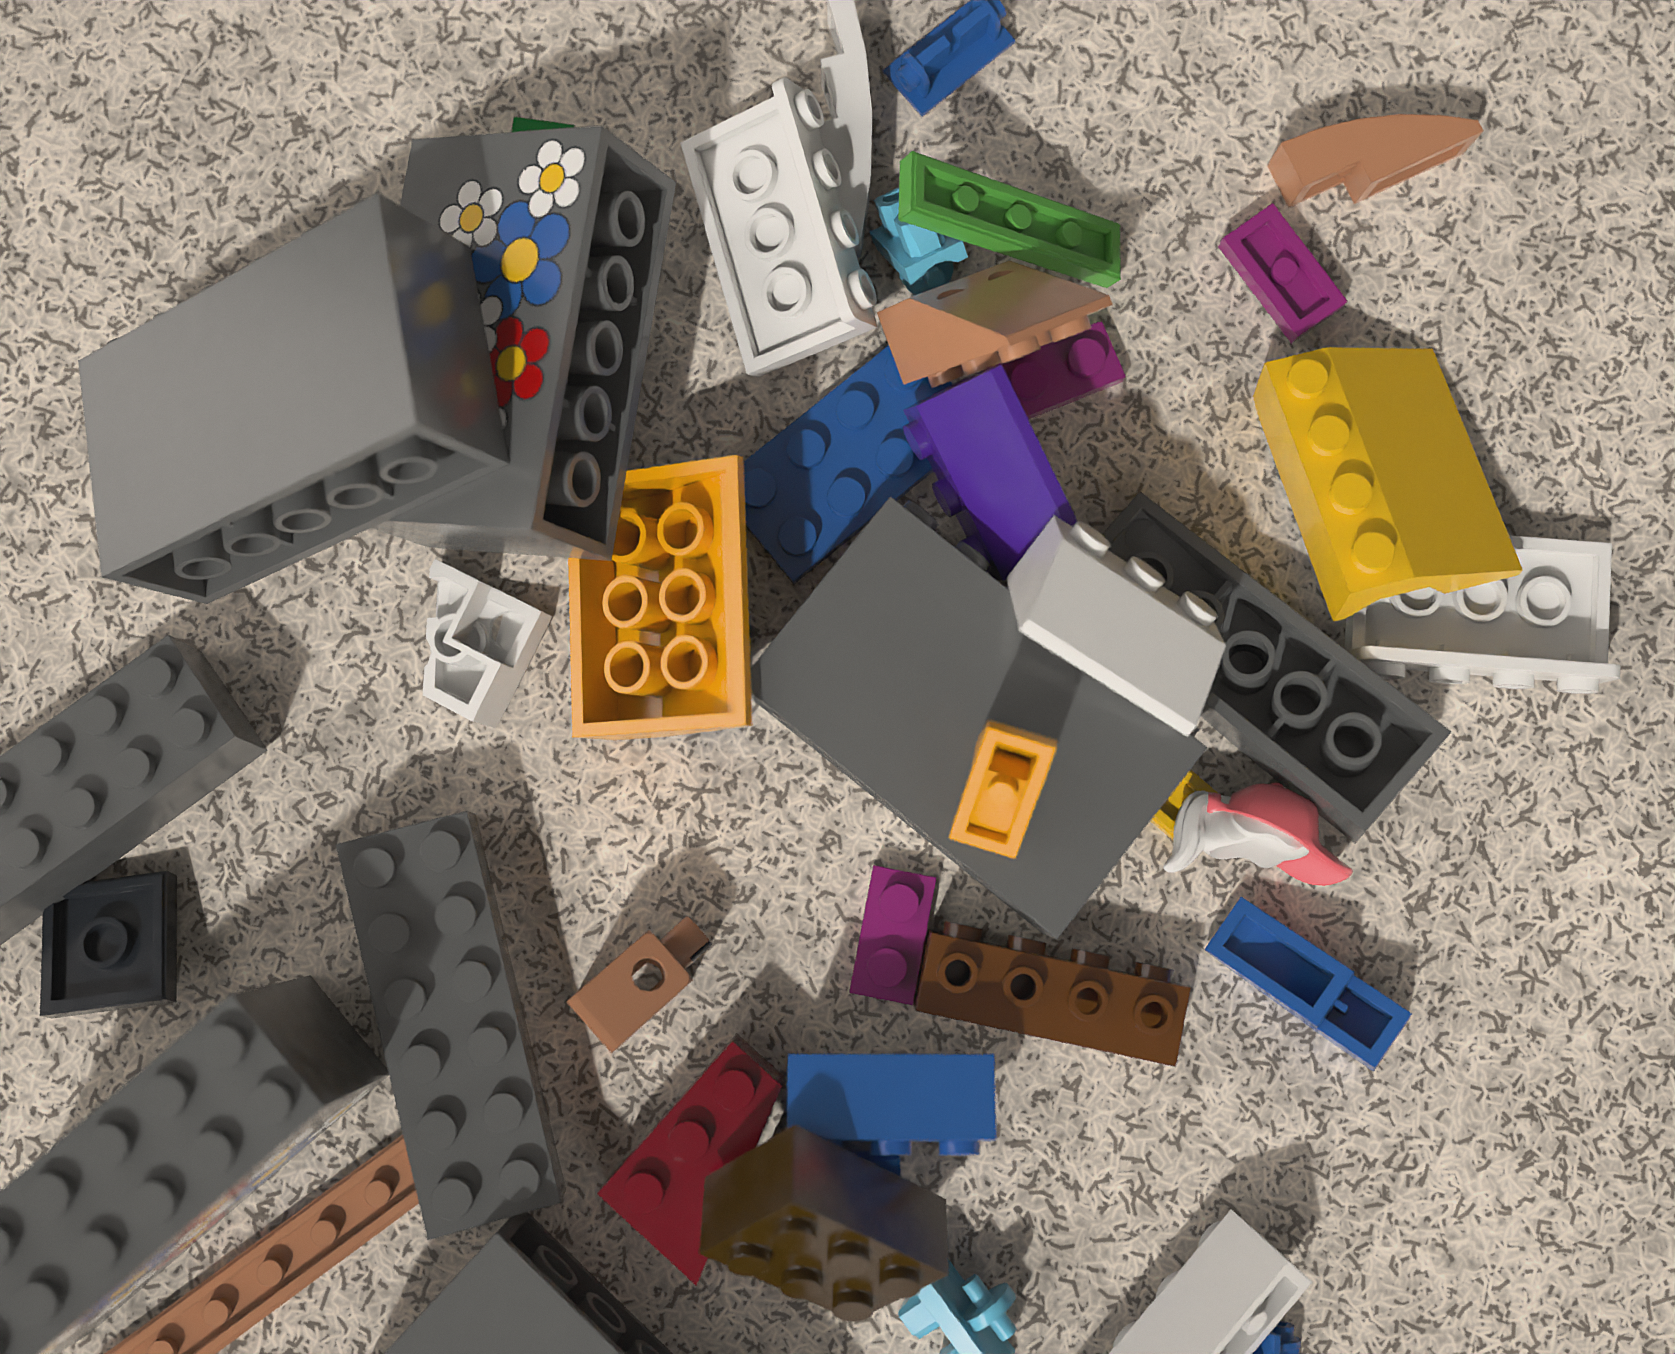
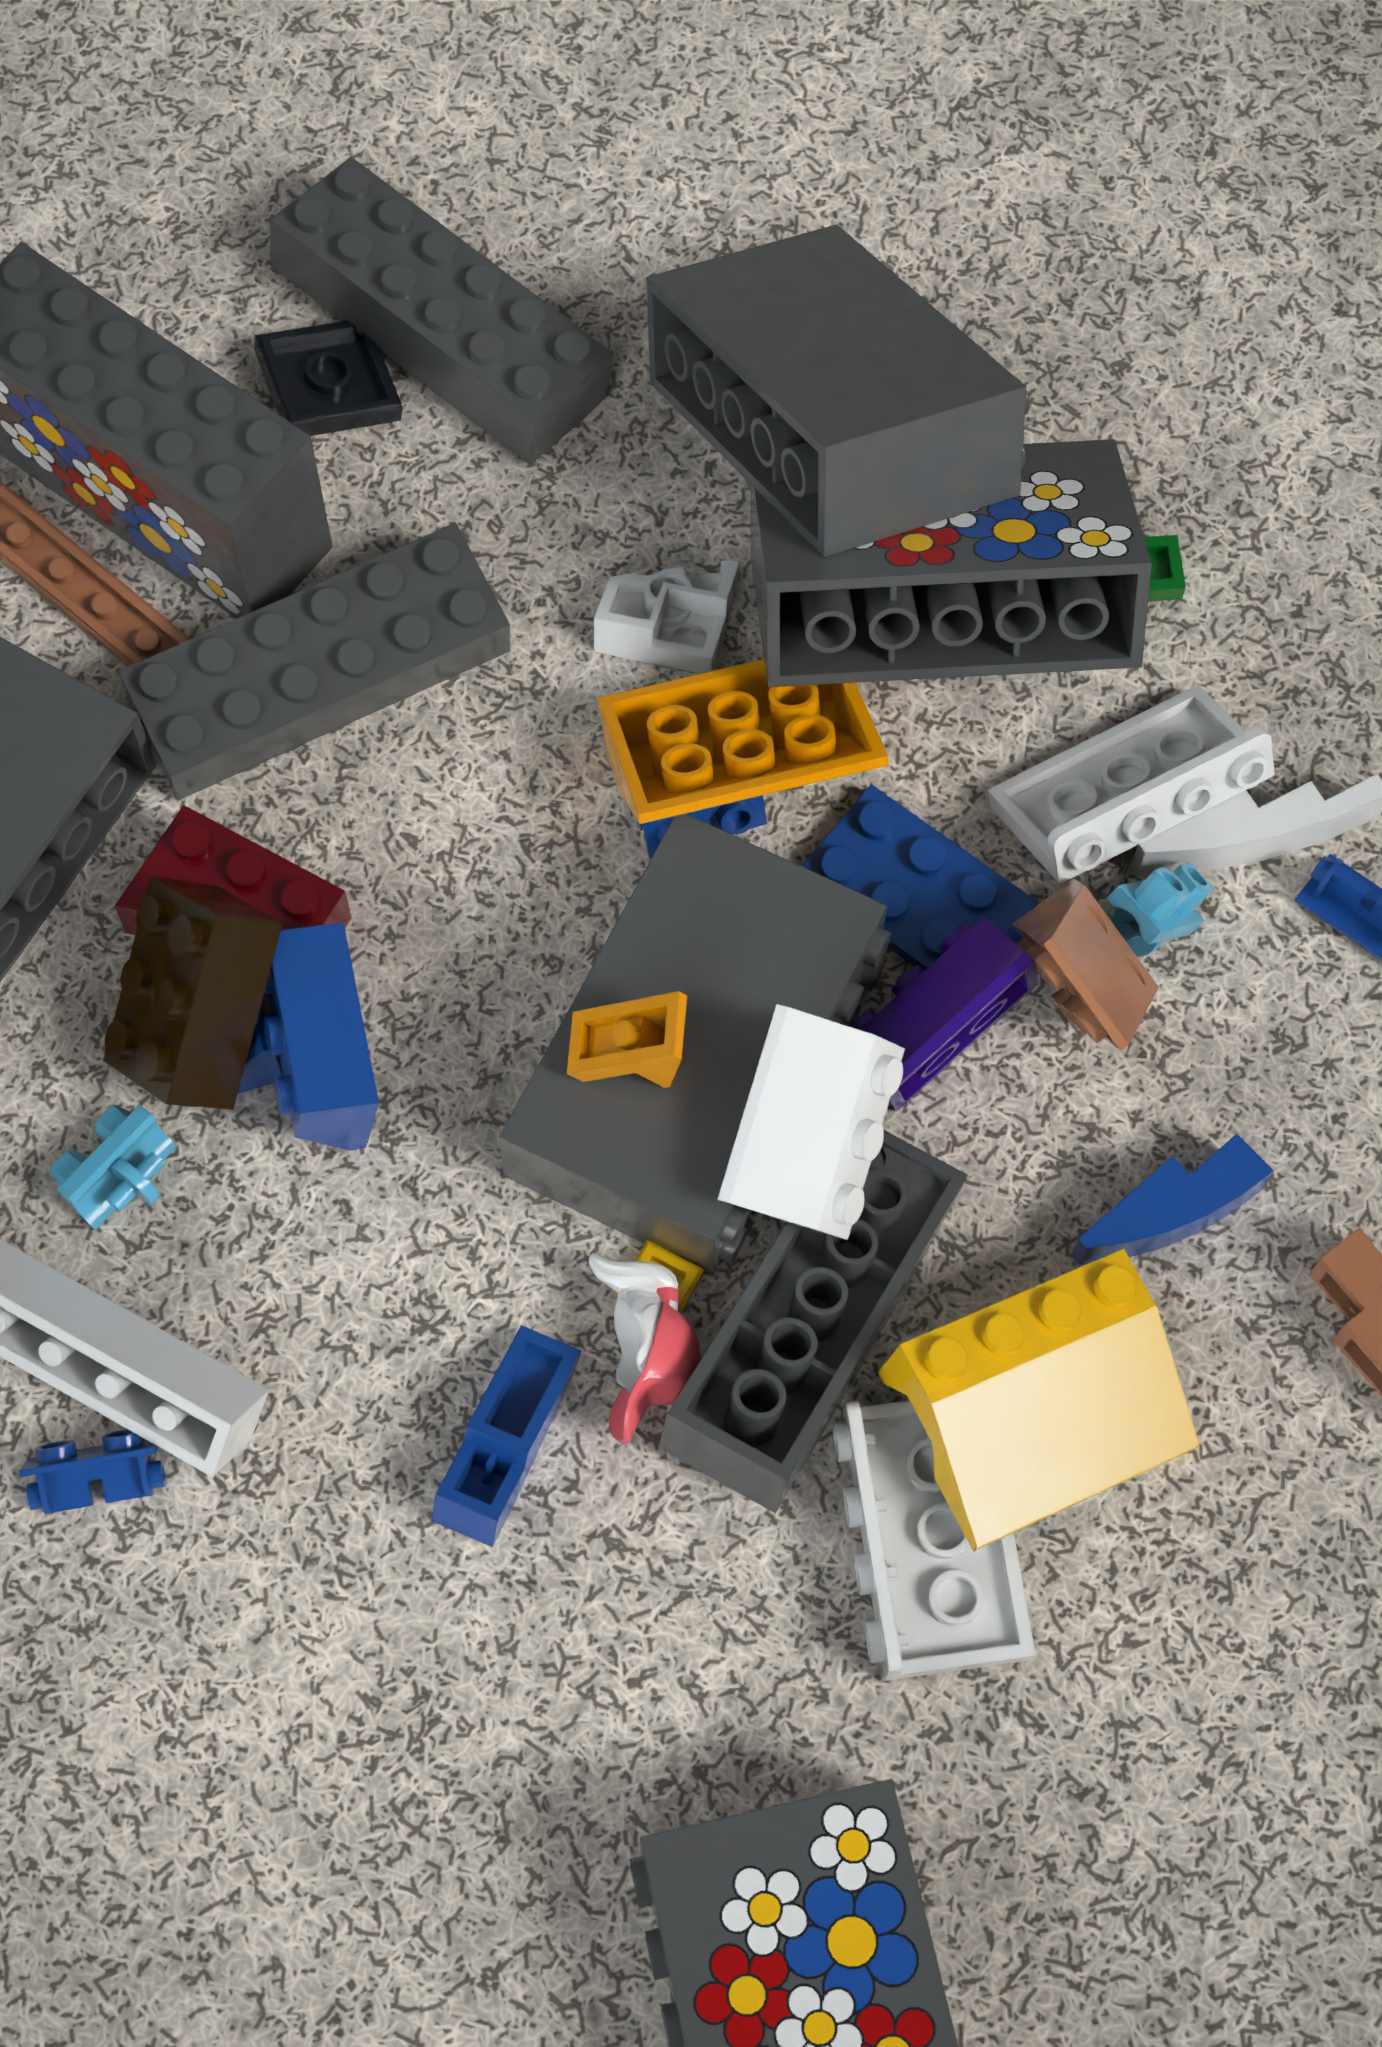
camera: 75 degrees right, 15 degrees down
(613, 1002) = (377, 804): nougat torso -> none
(892, 935) = (474, 1034): magenta plate -> none
(1008, 220) = (1197, 981): bright green tile -> none
(1052, 996) = (444, 1185): reddish brown brick -> none
(1064, 371) = (1068, 1076): magenta plate -> none
(1212, 307) = (1176, 1203): none -> blue slope
(1282, 273) = (1232, 1271): magenta plate -> none

